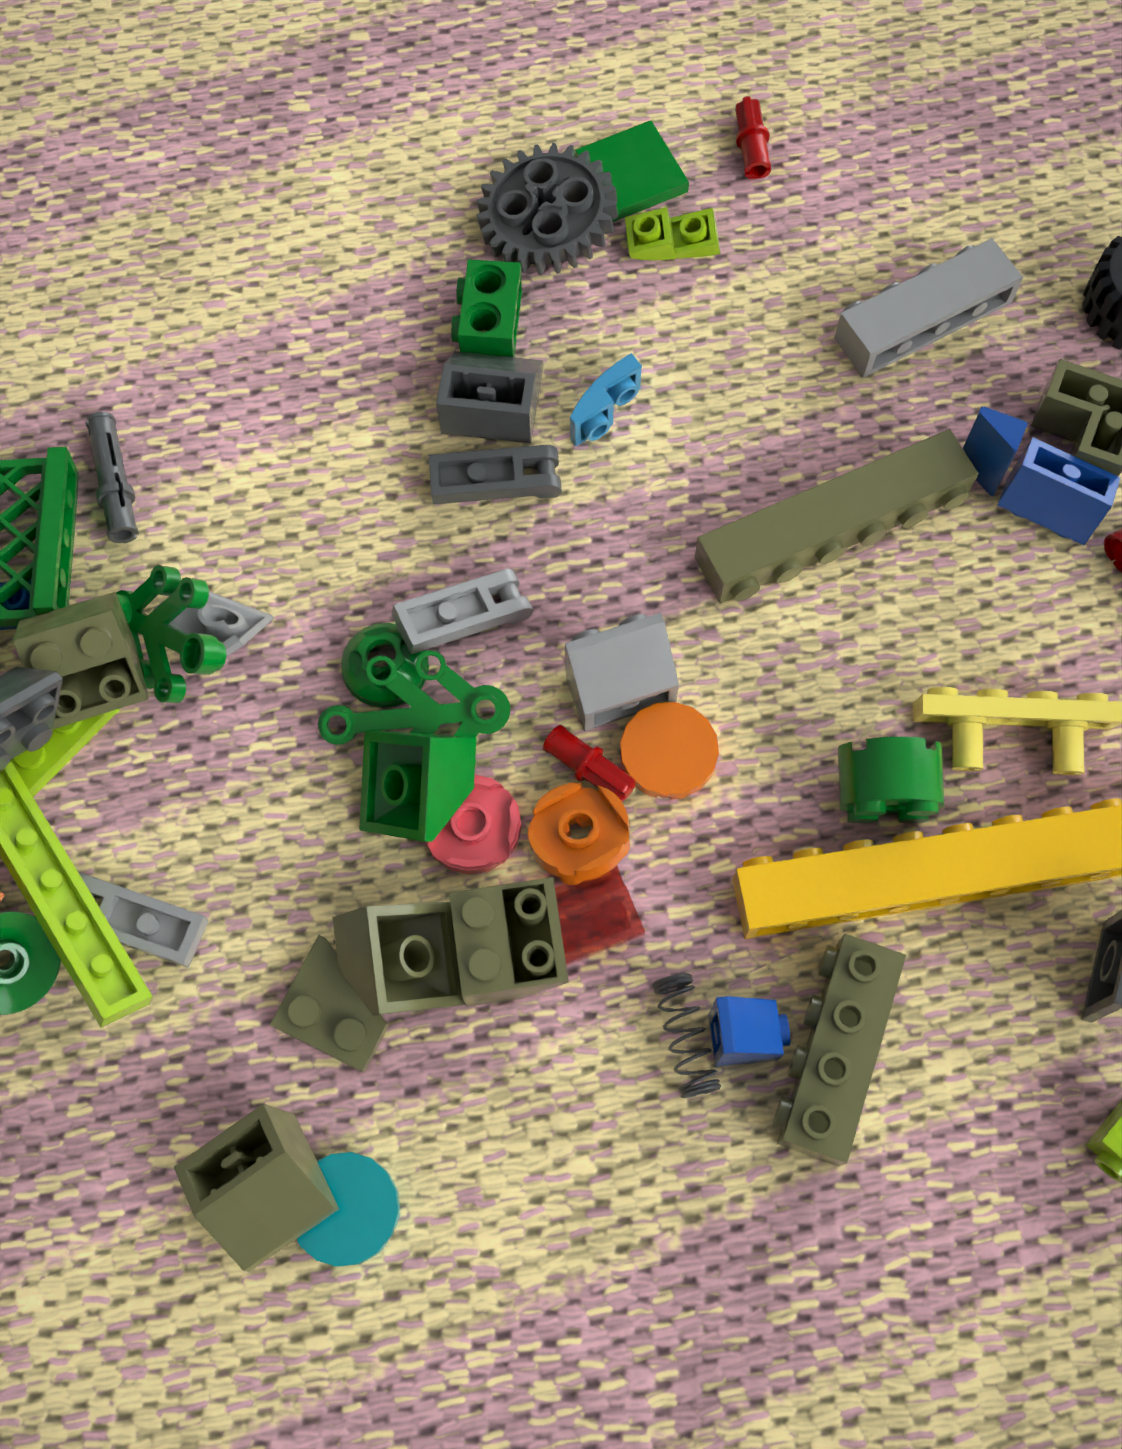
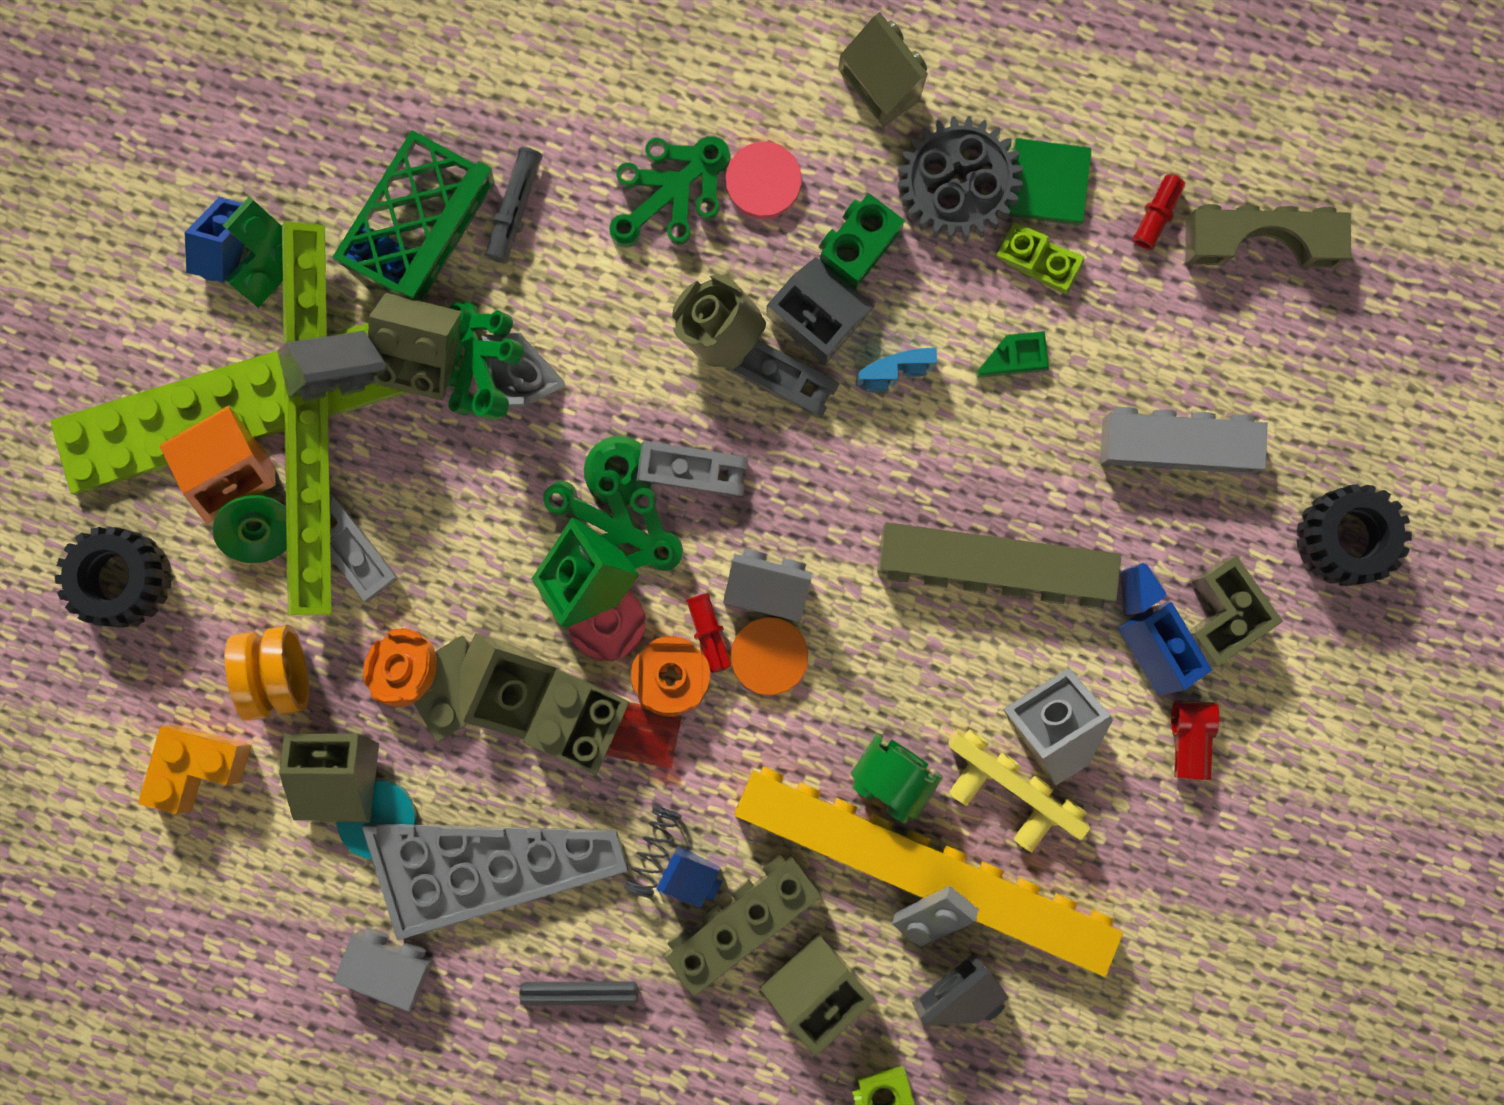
camera: 30 degrees right, 15 degrees up
(63, 1289) = (183, 759): none -> light orange brick
(111, 1110) = (266, 673): none -> light orange wheel
(266, 371) = (673, 186): none -> green plant
(269, 1012) = (400, 668): none -> orange tile
(356, 317) = (763, 180): none -> coral tile
(396, 452) = (718, 321): none -> olive brick
(410, 153) = (884, 70): none -> olive slope
(462, 1384) = (384, 968): none -> light grey brick
(481, 1205) = (462, 872): none -> light grey wing
(710, 1259) = (578, 993): none -> dark grey axle
(713, 328) = (1017, 355): none -> green tile
(906, 79) = (1314, 237): none -> olive arch
(979, 1070) = (817, 994): none -> olive slope
(1016, 629) = (1060, 725): none -> light grey slope
(1040, 897) = (935, 916): none -> light grey plate

